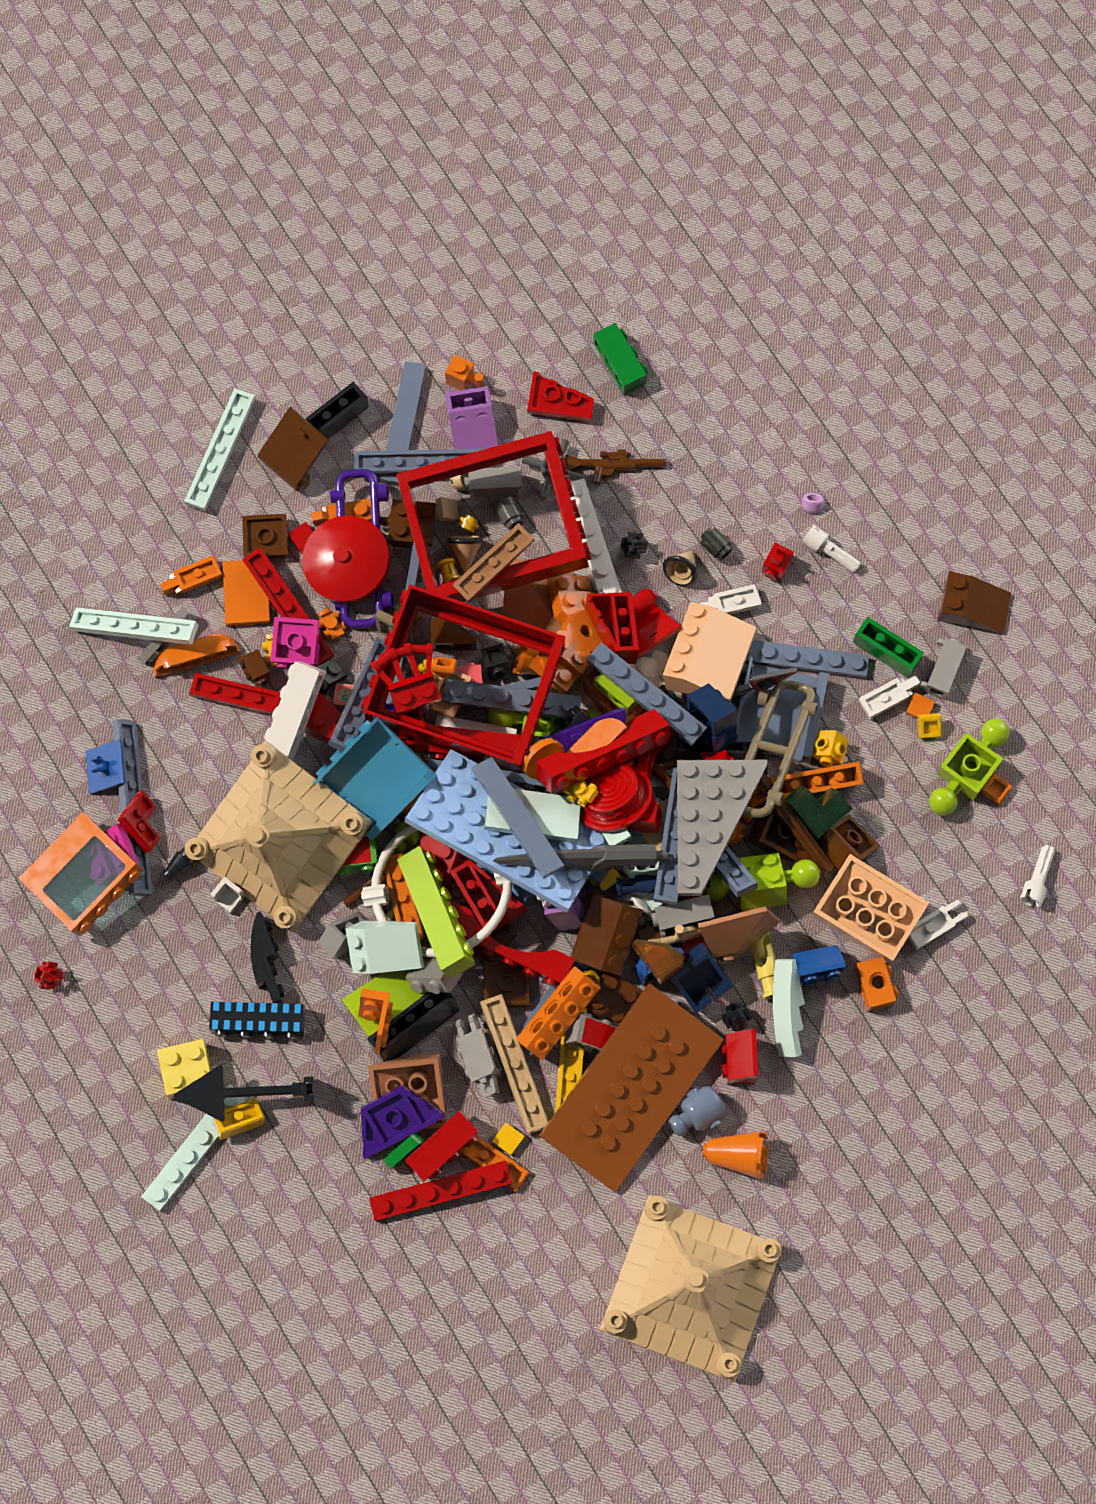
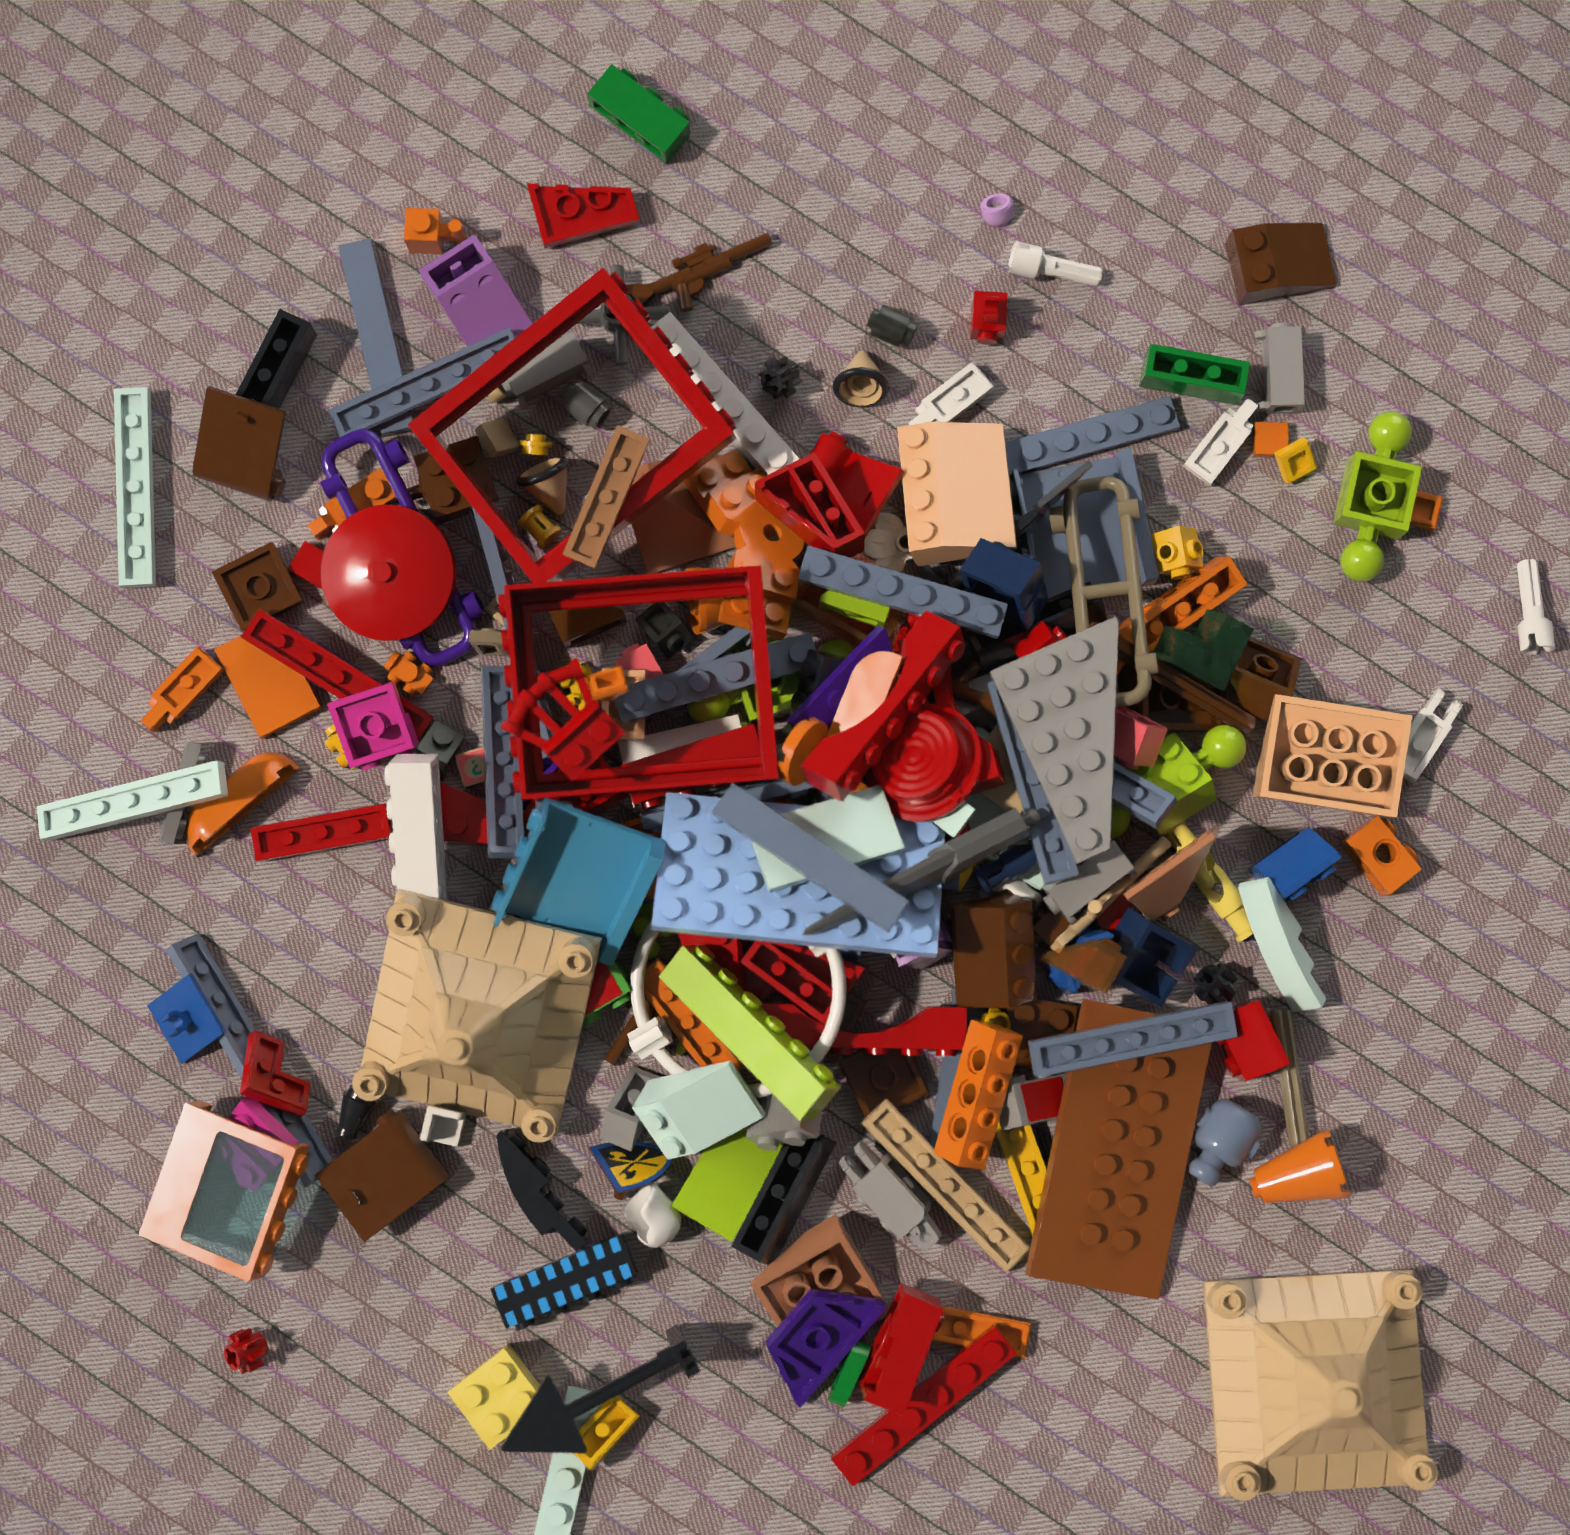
camera: 25 degrees left, 10 degrees up
(181, 907) = (386, 1172): none -> reddish brown door
(255, 668) = (332, 784): reddish brown brick -> none
(328, 968) = (630, 1169): none -> shield
(328, 1004) = (653, 1216): none -> white hair
(376, 1006) = (724, 1201): orange bracket -> none
(508, 1139) = (981, 1290): yellow tile -> none
(581, 791) = (885, 778): yellow piece -> none
(667, 1018) = (1132, 1039): none -> sand blue plate
(749, 841) = (1136, 738): none -> coral slope
(759, 1092) = (1290, 1079): none -> dark tan axle

